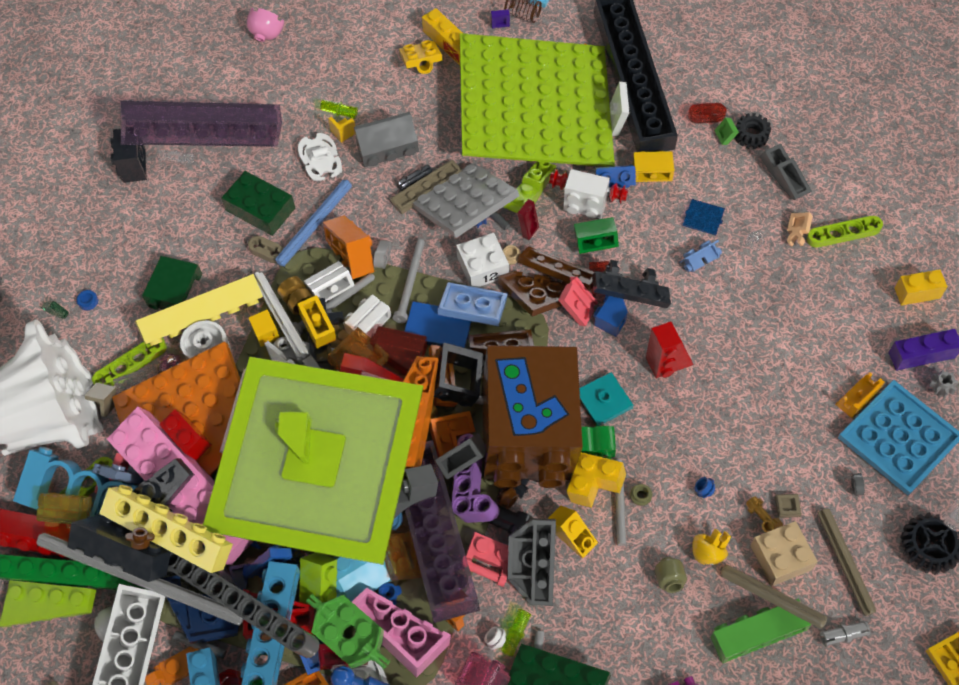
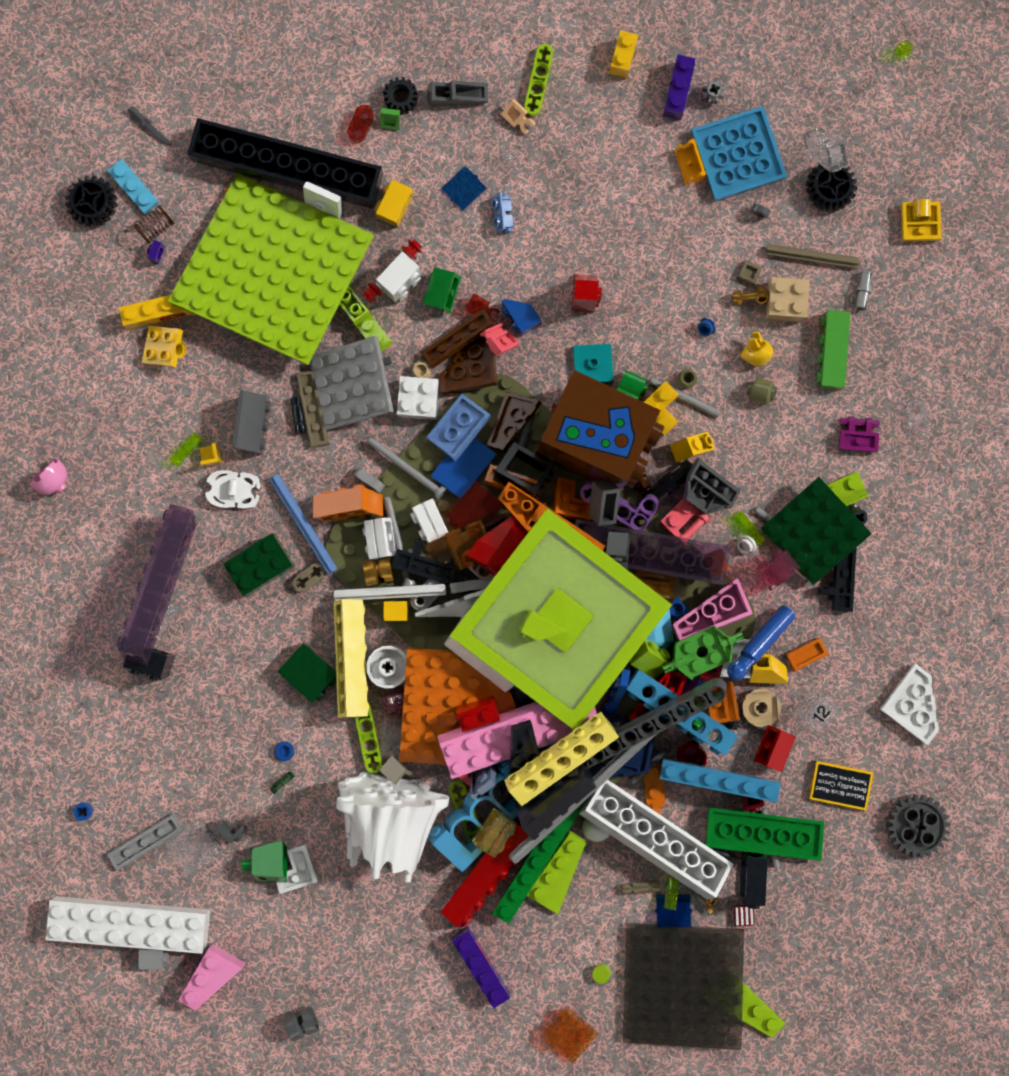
camera: 70 degrees left, 25 degrees up
(139, 538) = (568, 784): reddish brown plate -> none
(316, 321) = (424, 565): yellow brick -> none
(528, 219) = (400, 340): dark red plate -> none
(618, 174) = (392, 243): blue bracket -> none
(644, 291) = (516, 277): black hinge -> none
(774, 596) = (818, 327): dark tan axle -> none

